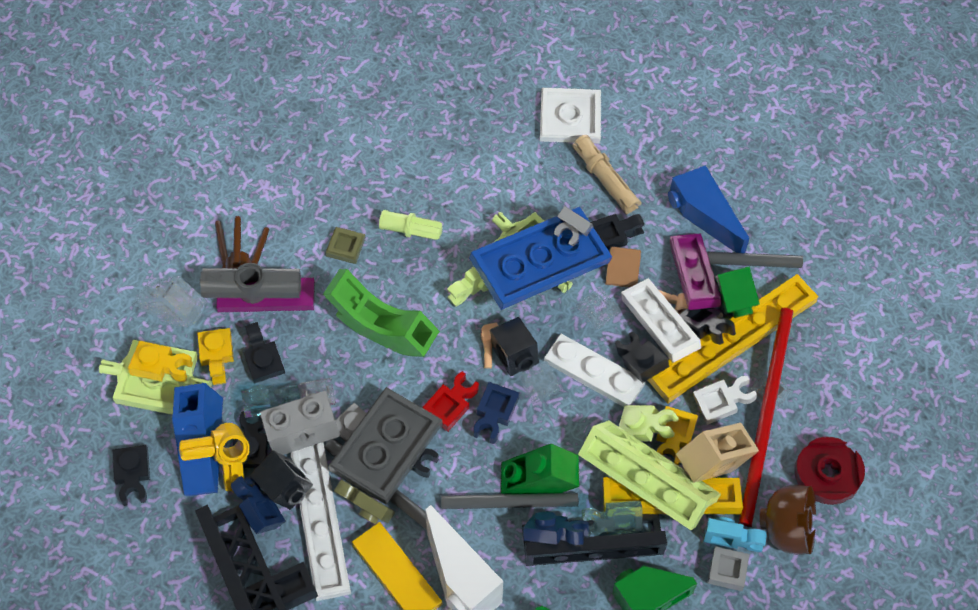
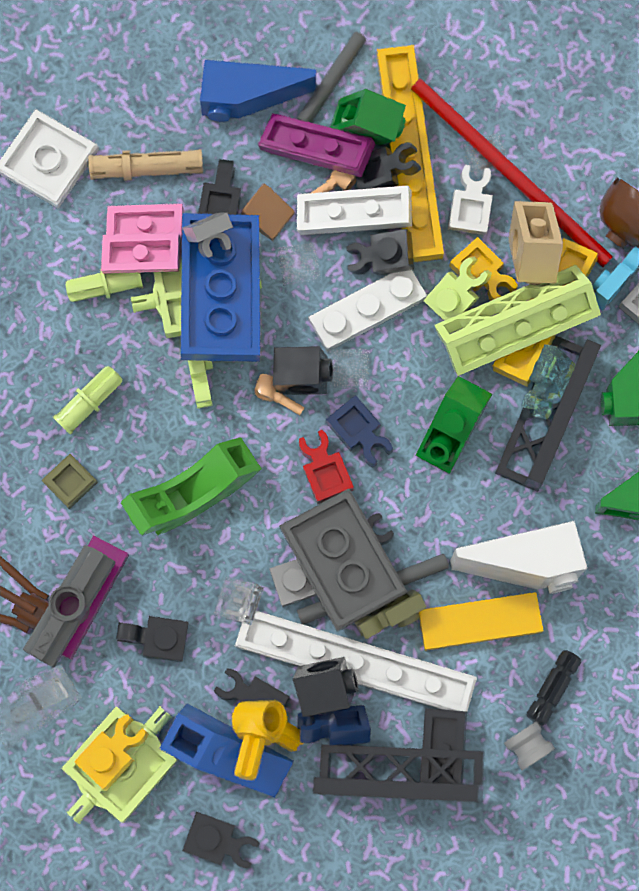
camera: 60 degrees left, 15 degrees up
(215, 350) = (121, 683): yellow plate -> none
(265, 397) = (217, 659): clear light blue plate -> none
(300, 423) = (274, 635): light grey brick -> none
(502, 193) = (101, 284): none -> yellowish green axle
(509, 501) = (462, 470): dark grey bar -> none
(546, 194) = (142, 239): none -> bright pink slope
(550, 529) = (526, 445): dark blue plate -> none
(842, 458) = (591, 132): dark red plate -> none

